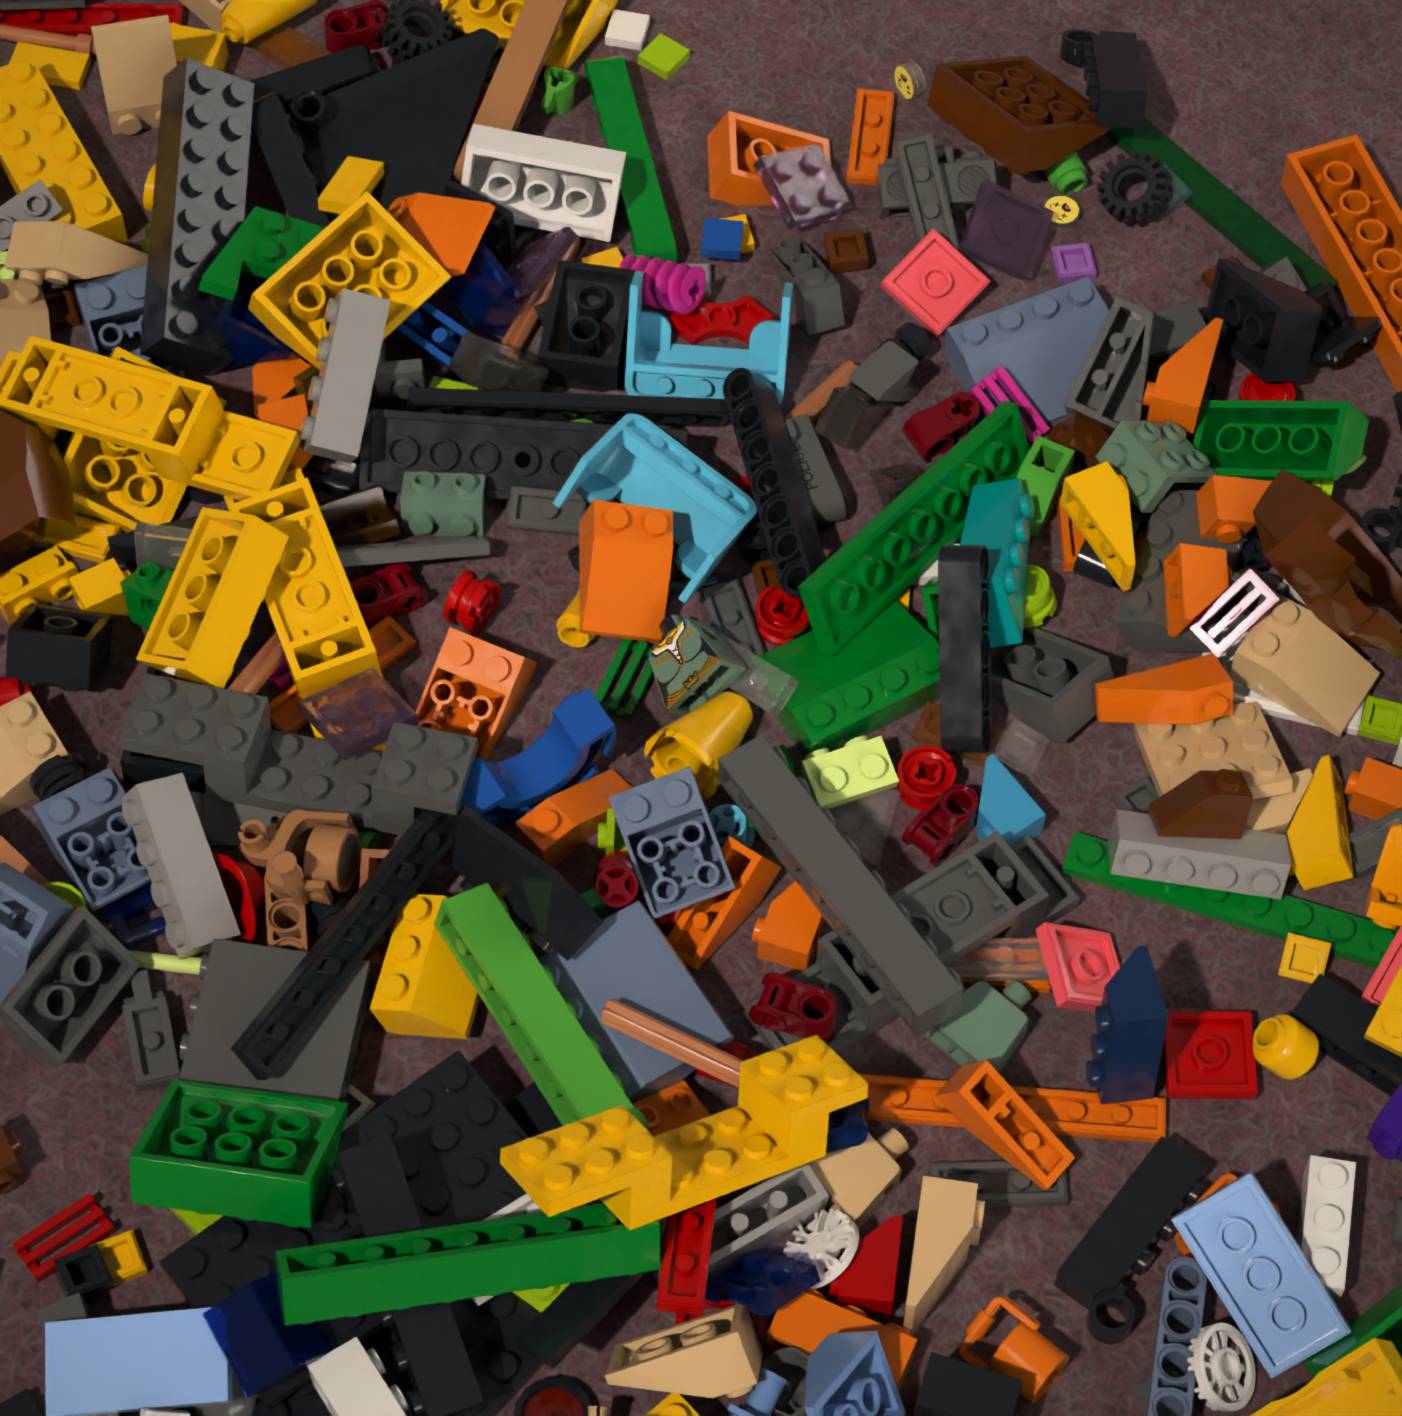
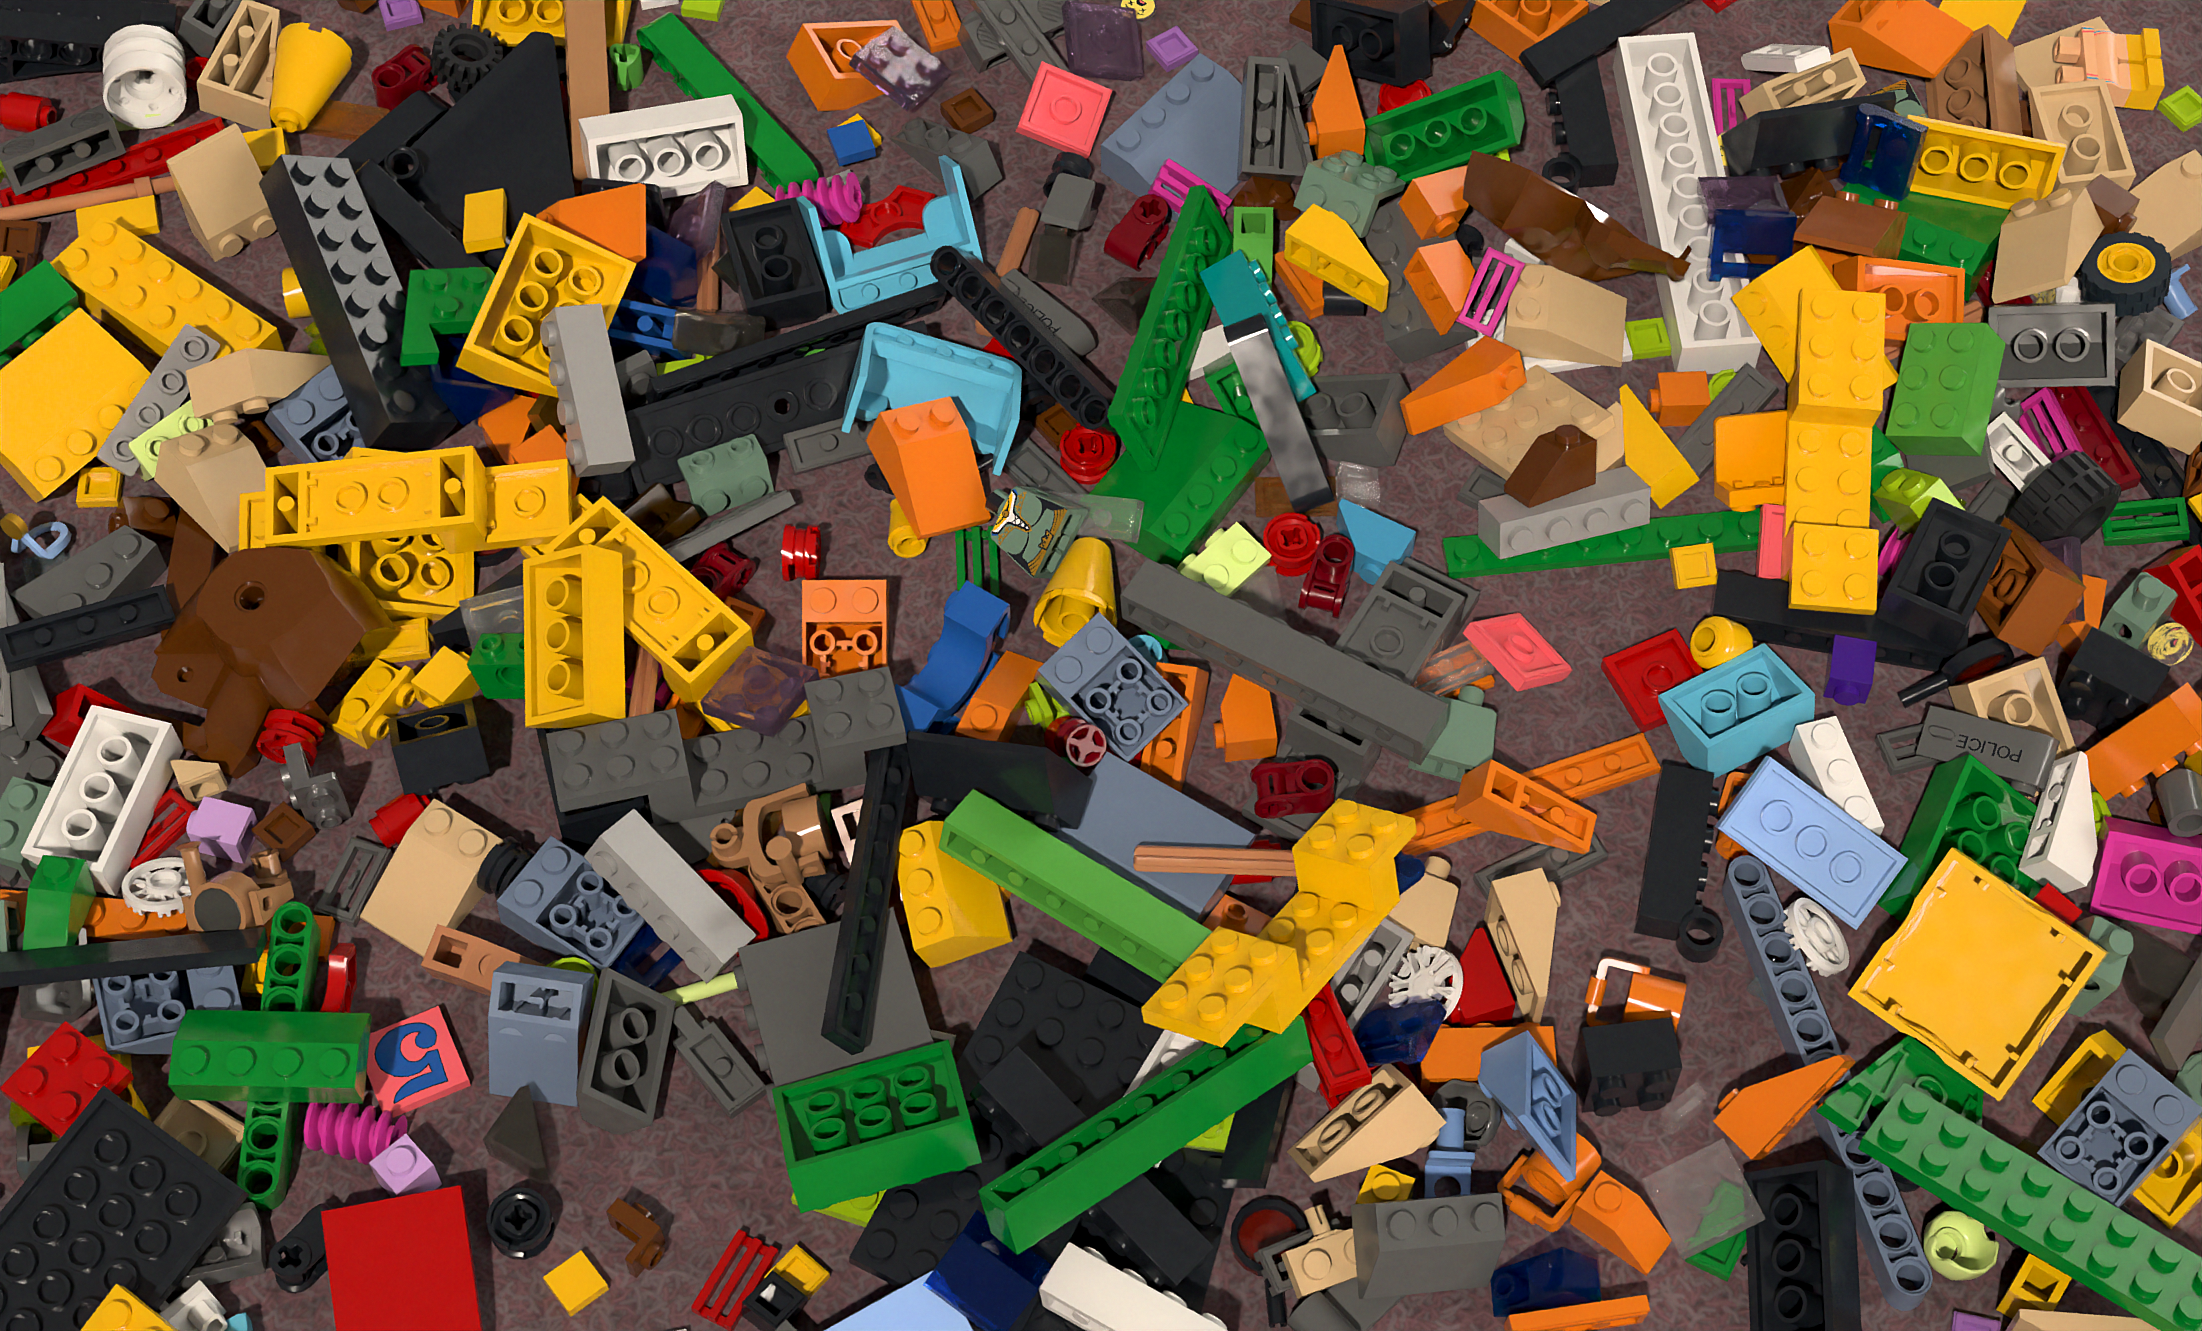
camera: 25 degrees left, 0 degrees up
(1128, 1033) = (1599, 685): dark blue slope -> none
(1264, 1116) = (1737, 711): none -> medium azure slope

